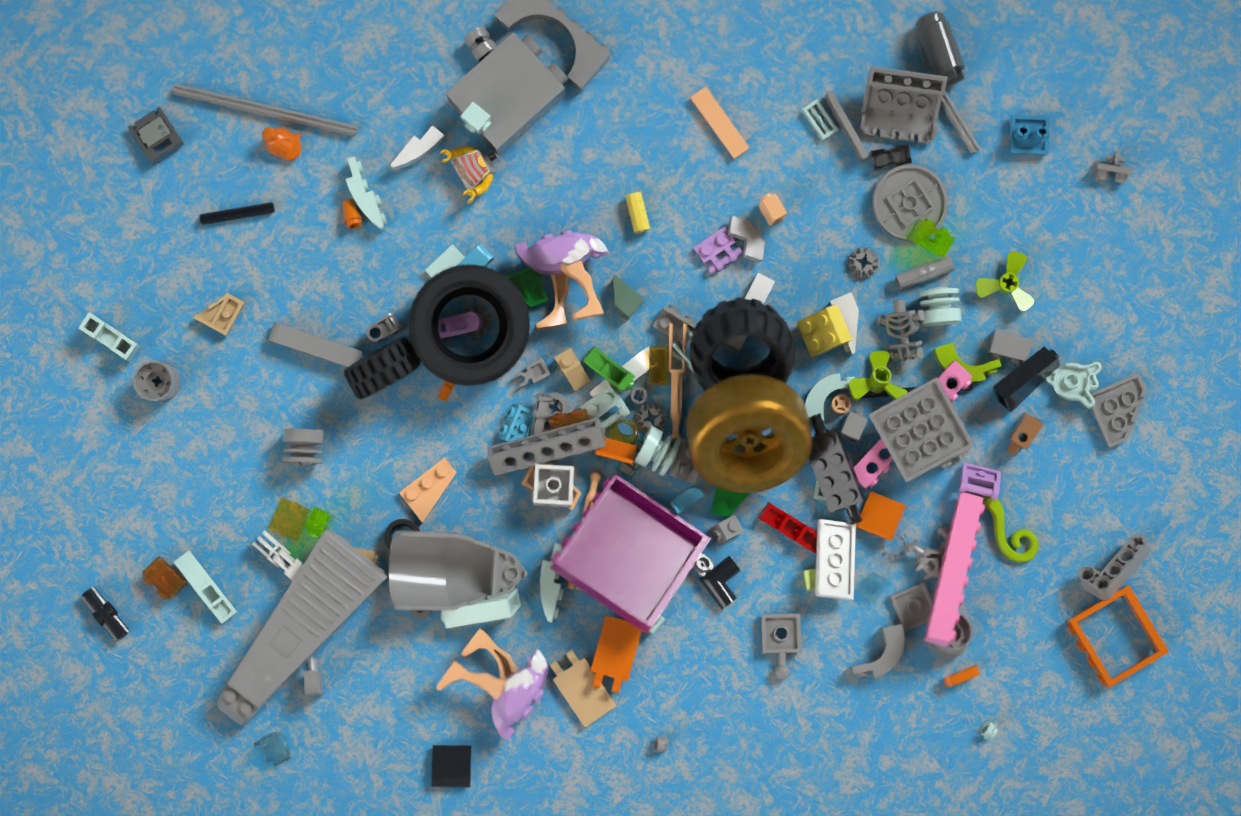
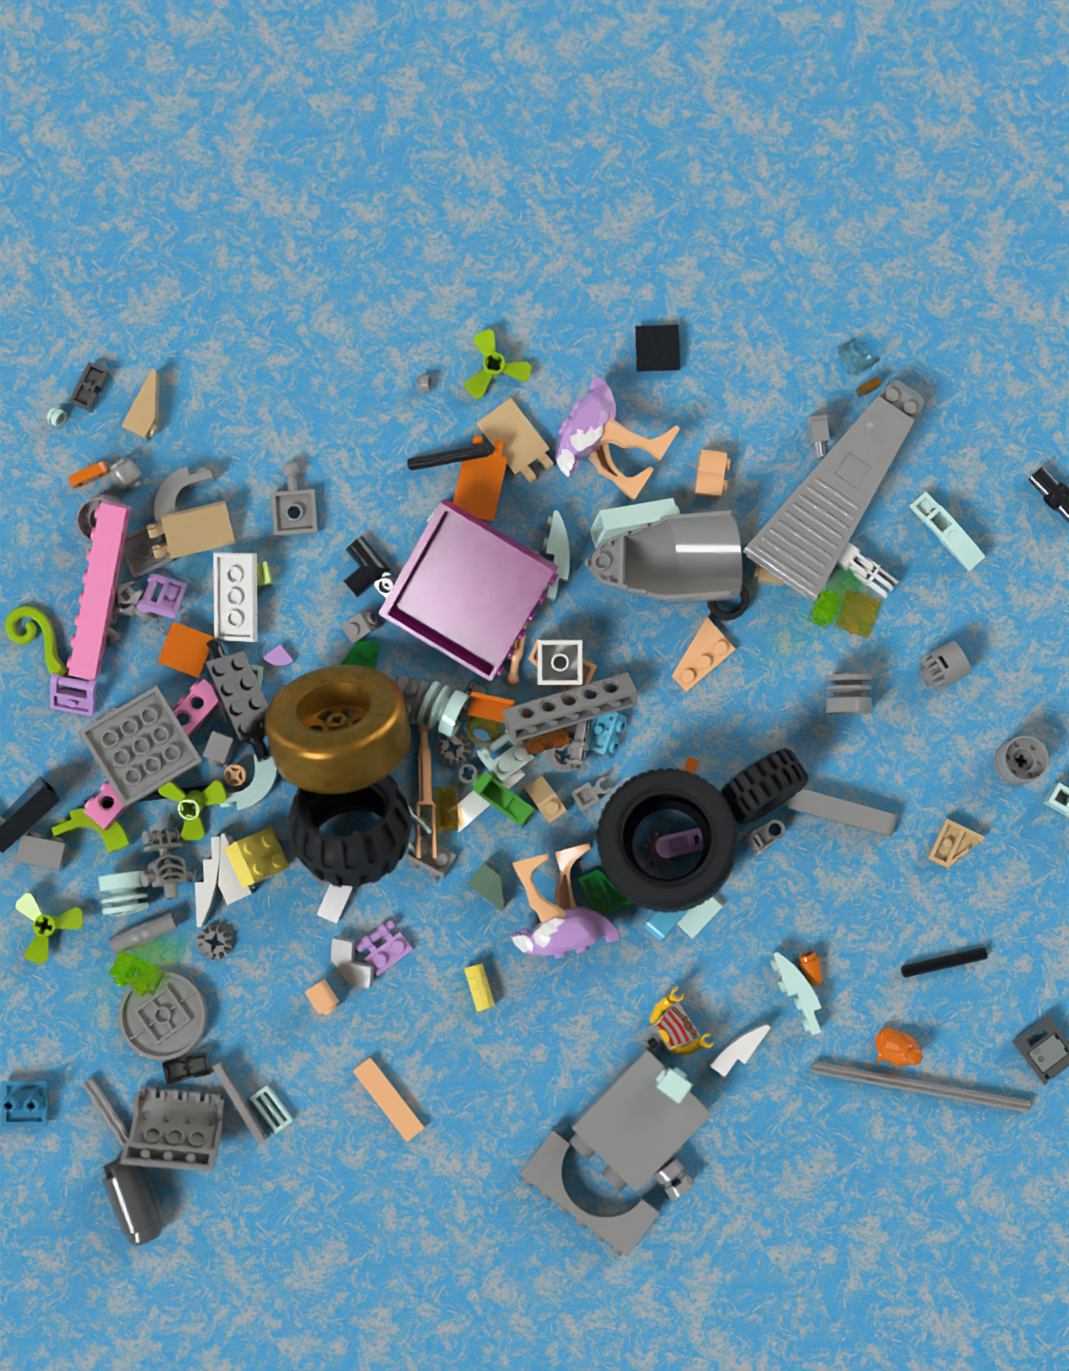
camera: 175 degrees right, 0 degrees up
(163, 578) = (994, 538): clear orange brick -> none
(217, 467) = (944, 666): none -> light grey gear
(265, 720) = (868, 387): none -> pearl gold tile
(410, 649) = (711, 473): none -> light nougat brick
(613, 740) = (478, 384): none -> lime piece
(643, 674) = (448, 457): none -> black axle
(686, 499) = (409, 658): medium azure helmet -> none
(789, 527) = (288, 632): red slope -> none
(799, 506) = (278, 657): none -> lavender tile
(869, 307) = (206, 890): none -> white slope
(871, 620) = (193, 530): none -> tan tile
(893, 560) = (169, 598): none -> lavender plate
(910, 730) = (143, 414): none -> tan slope
(929, 674) = (125, 474): none -> light grey head
(960, 756) = (88, 386): none -> dark grey piece
(1027, 425) = (20, 760): medium nougat torso -> none

